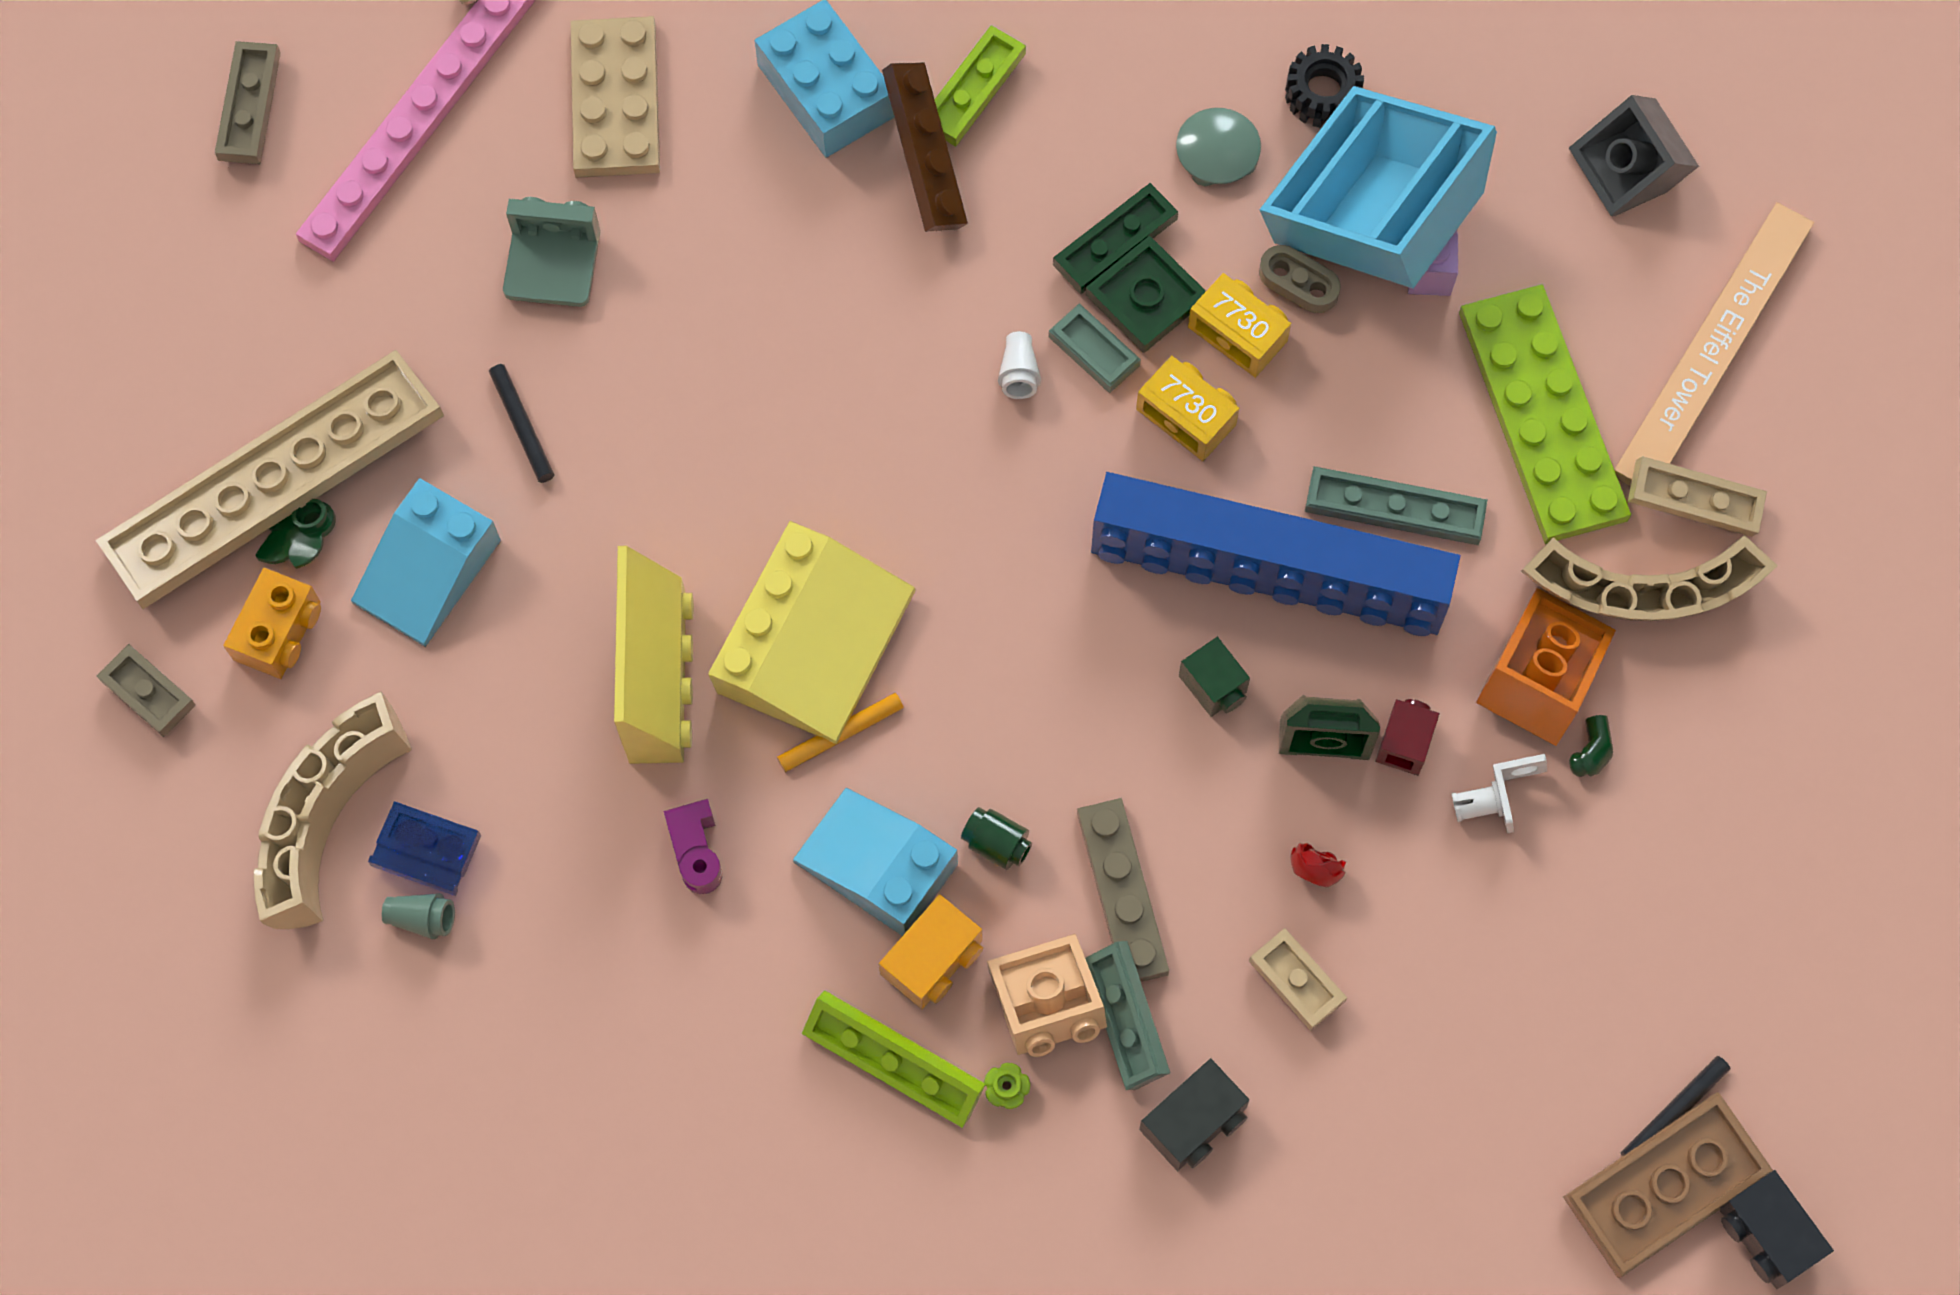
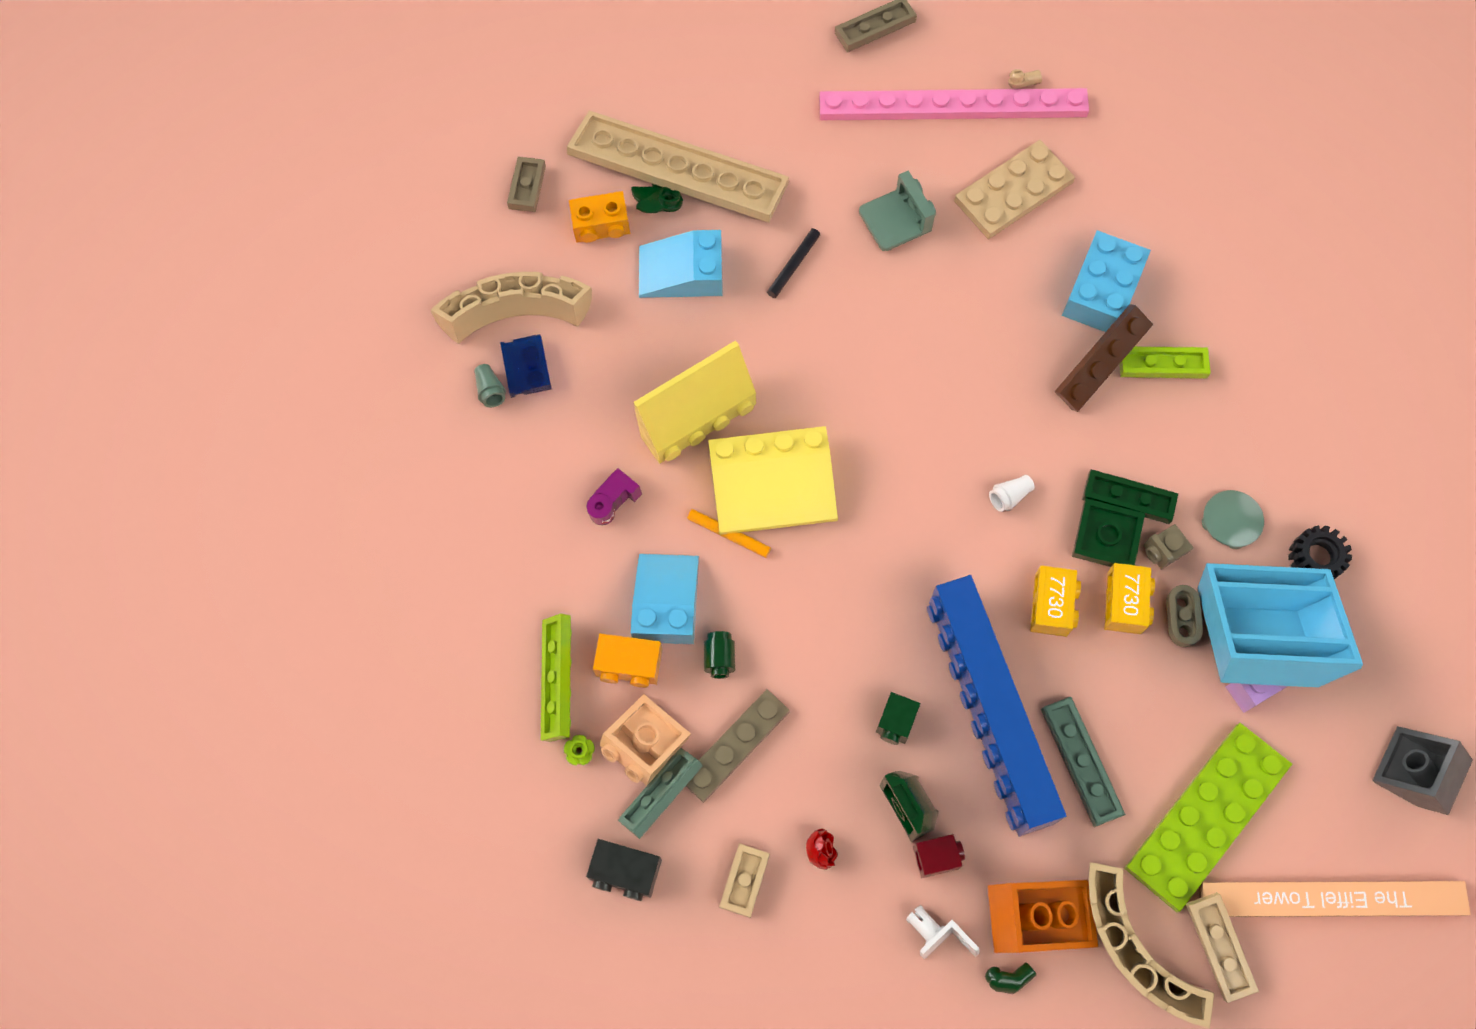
camera: 60 degrees right, 0 degrees up
(1094, 348) = (1054, 527): sand green tile -> none
(1204, 240) = (1167, 547): none -> dark tan bracket

